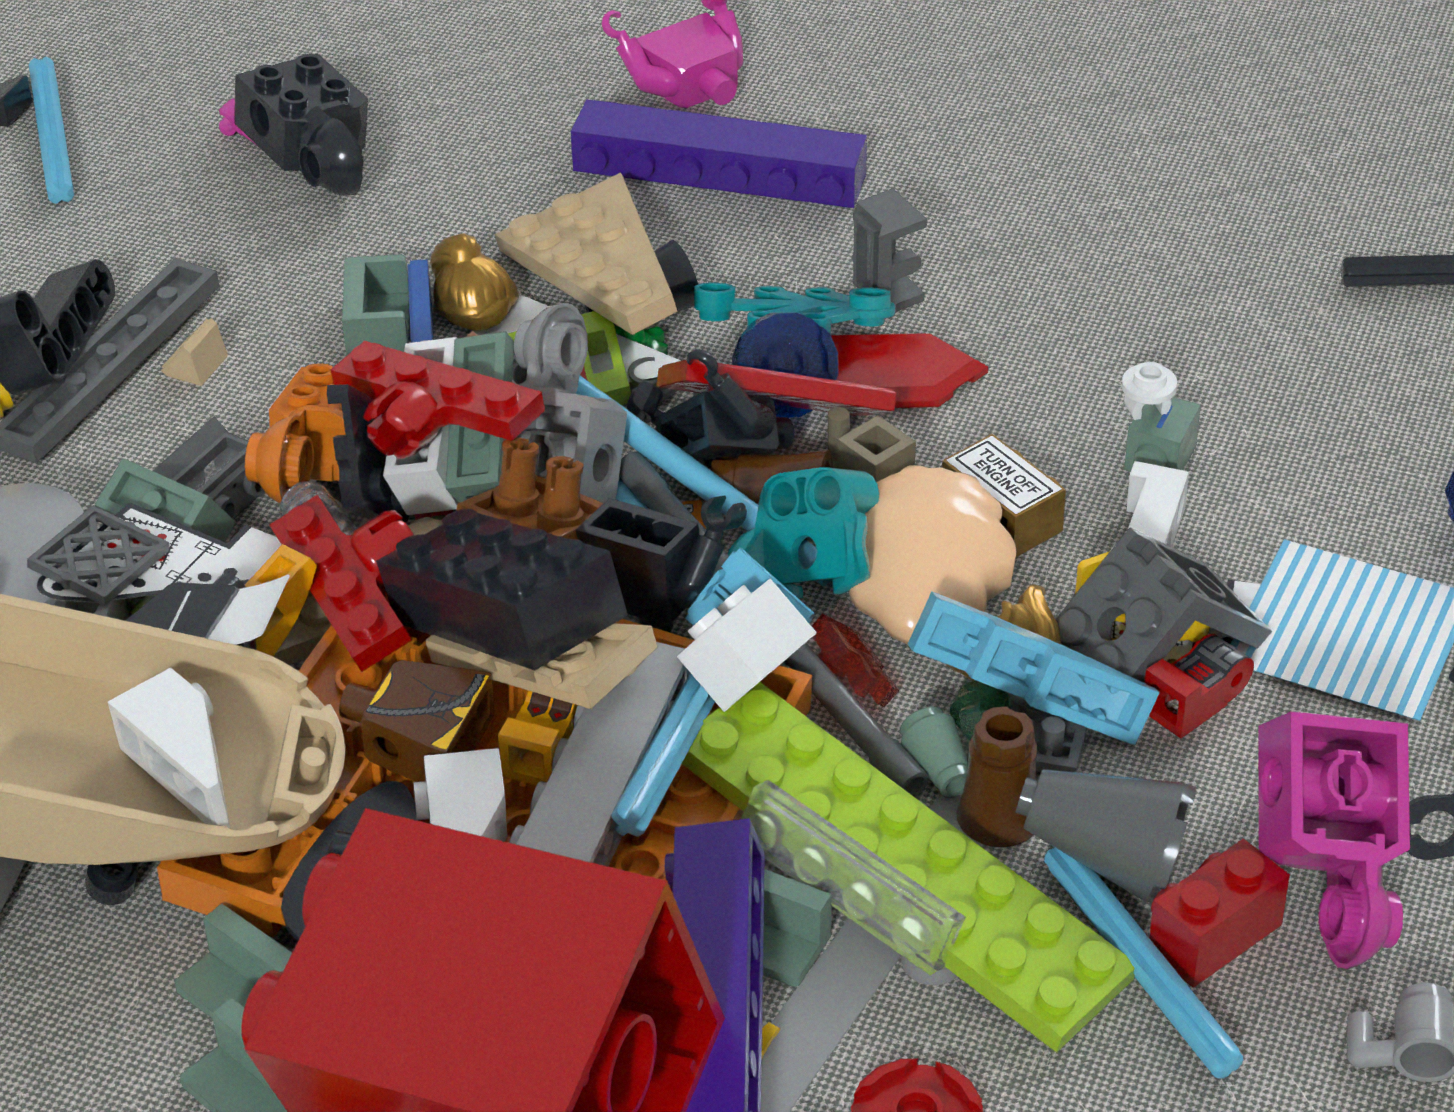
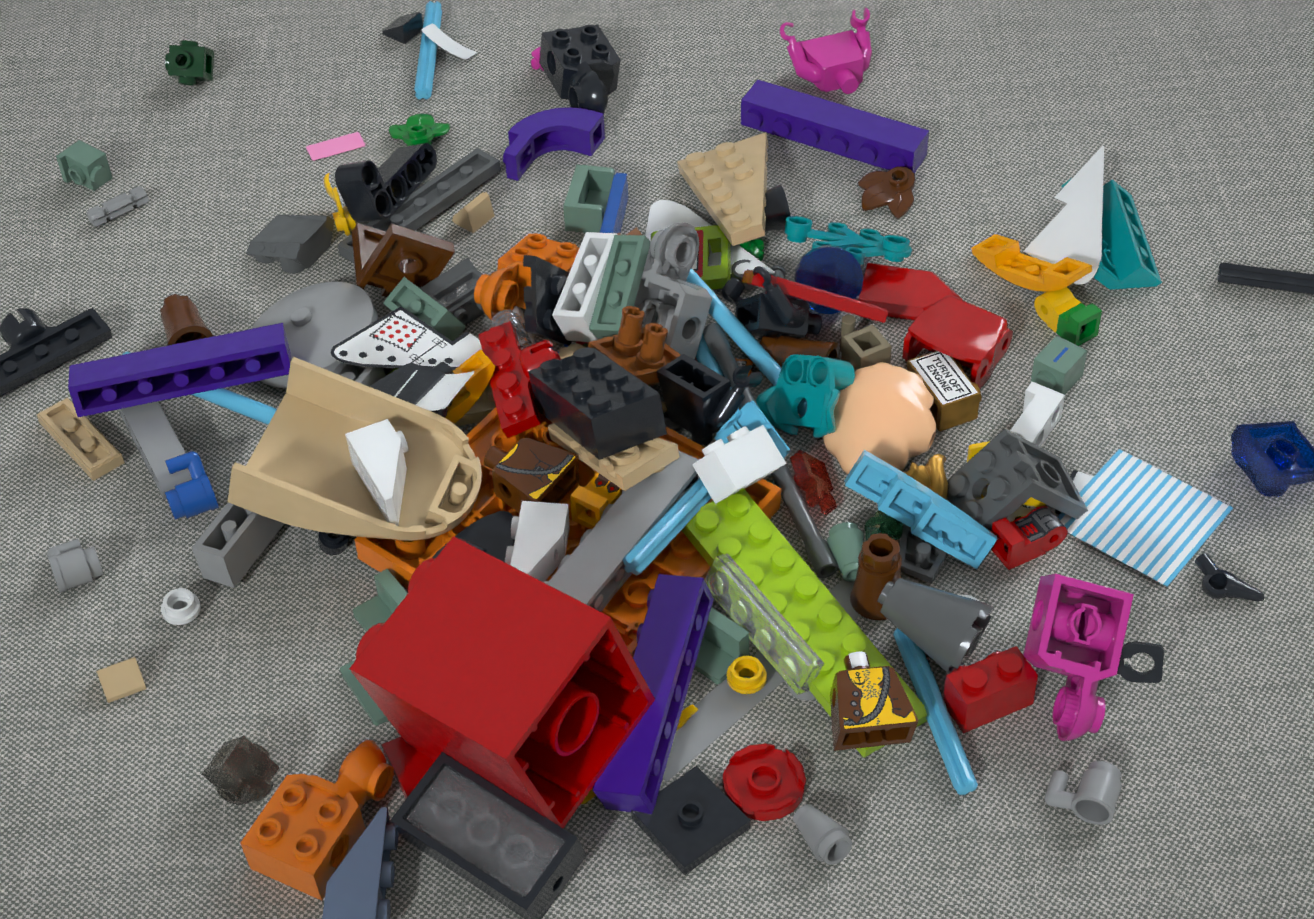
camera: 15 degrees right, 5 degrees up
(69, 246) = (418, 129): none -> green plate
(77, 115) = (446, 42): none -> white sticker
(89, 437) = (399, 252): none -> reddish brown bracket
(123, 530) = (403, 341): dark grey window -> none
(286, 218) = (551, 131): none -> dark purple arch
(423, 395) = (587, 268): red plate -> none
(470, 286) = (651, 195): pearl gold hair -> none
(822, 229) = (884, 189): none -> reddish brown plate
(840, 962) = (749, 667): none -> yellow plate
(875, 260) = (910, 217): dark grey window -> none
(1006, 405) = (963, 332): none -> red piece
(1029, 300) = (1004, 259): none -> light orange slope
(1054, 967) = (869, 706): none -> torso
(1126, 249) = (1078, 226): none -> white sticker
(1137, 344) = (1068, 315): none -> leg
(1150, 385) = (1052, 333): white plate -> none
(1176, 245) = (1125, 249): none -> teal slope

